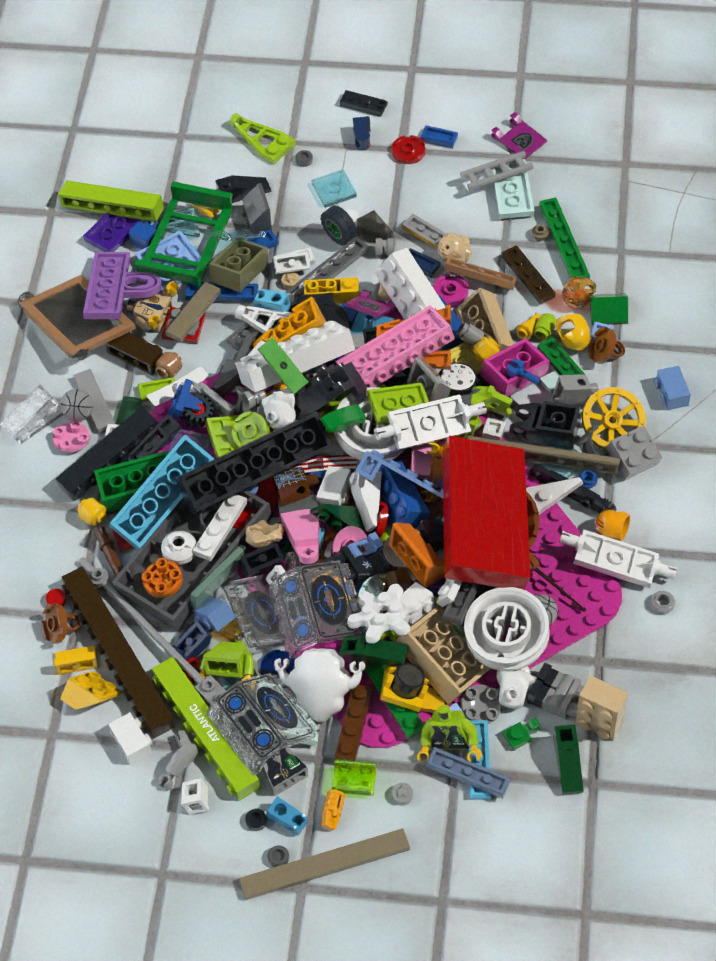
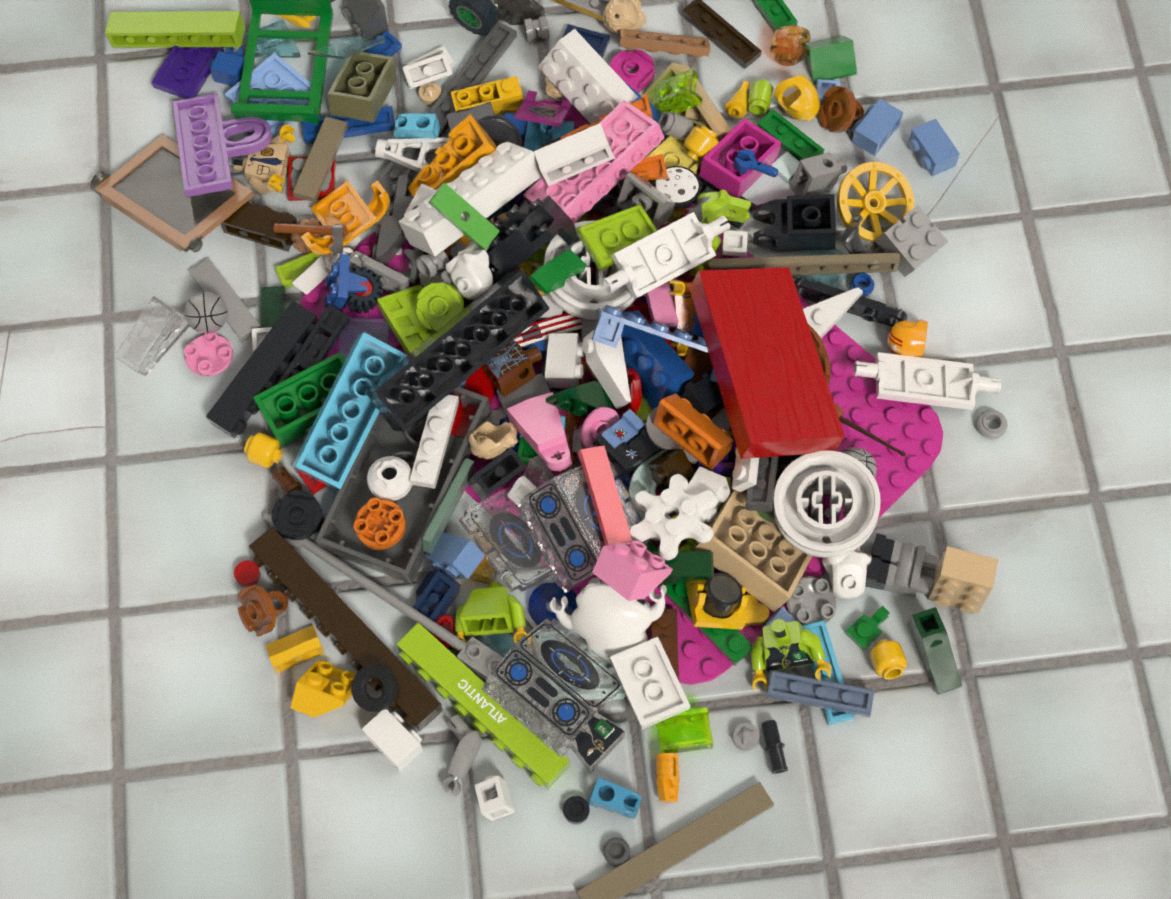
camera: 15 degrees left, 10 degrees up
(103, 562) = (297, 515): none -> black tile
(116, 690) = (359, 688): none -> black tyre
(190, 364) = (337, 230): none -> dark orange piece
(199, 356) = (348, 209): none -> light orange piece
(335, 589) = (604, 495): none -> coral tile
(335, 734) = (649, 683): none -> white plate
(339, 643) = (631, 569): none -> bright pink slope
(380, 337) = (574, 154): none -> white brick
(421, 805) = (774, 747): none -> black axle
(477, 310) = (677, 93): none -> clear neon green bracket
(529, 758) = (888, 659): none -> yellow head
(631, 364) = (877, 126): none -> medium blue brick

